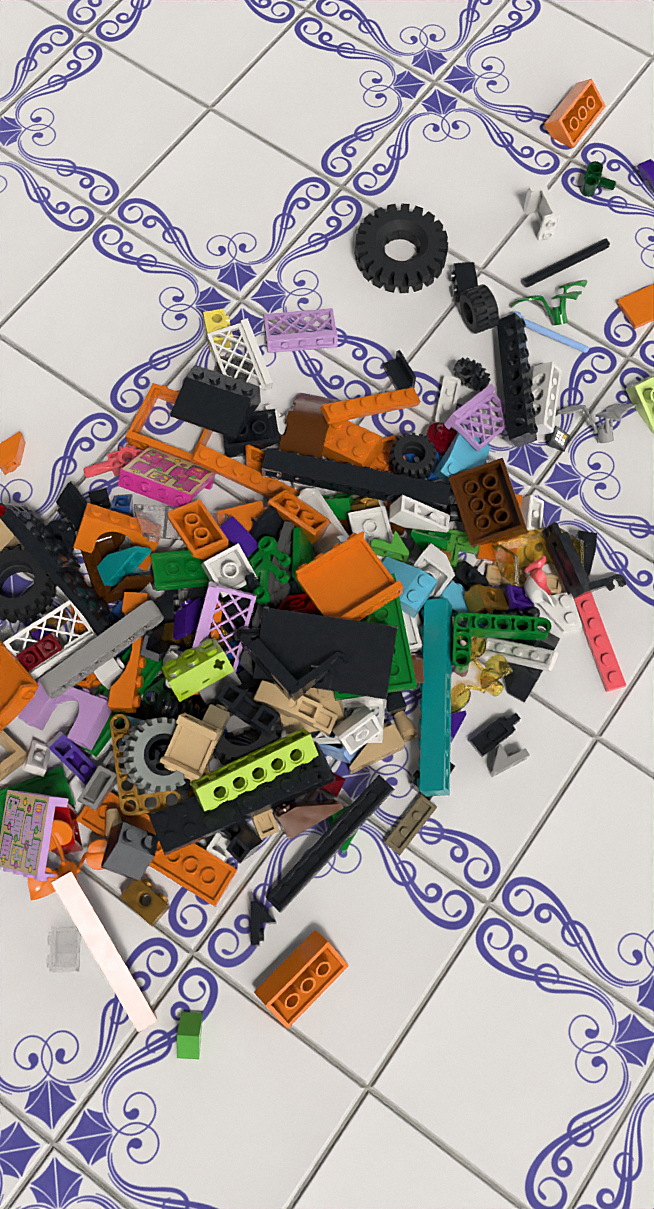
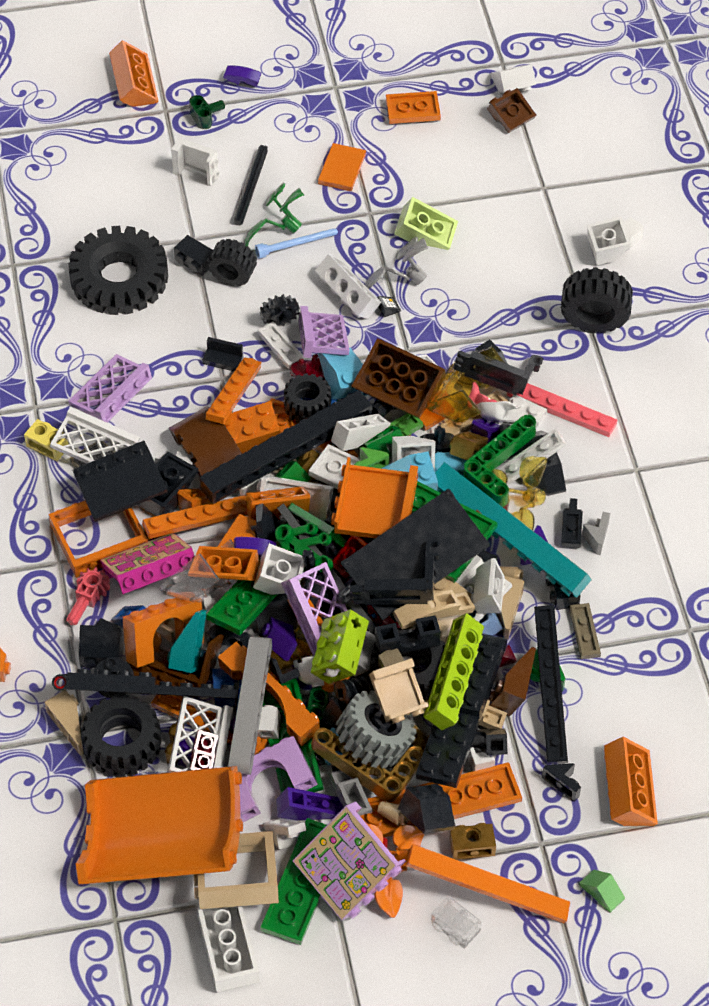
camera: 45 degrees left, 15 degrees down
(517, 380) = (362, 321): black brick -> none

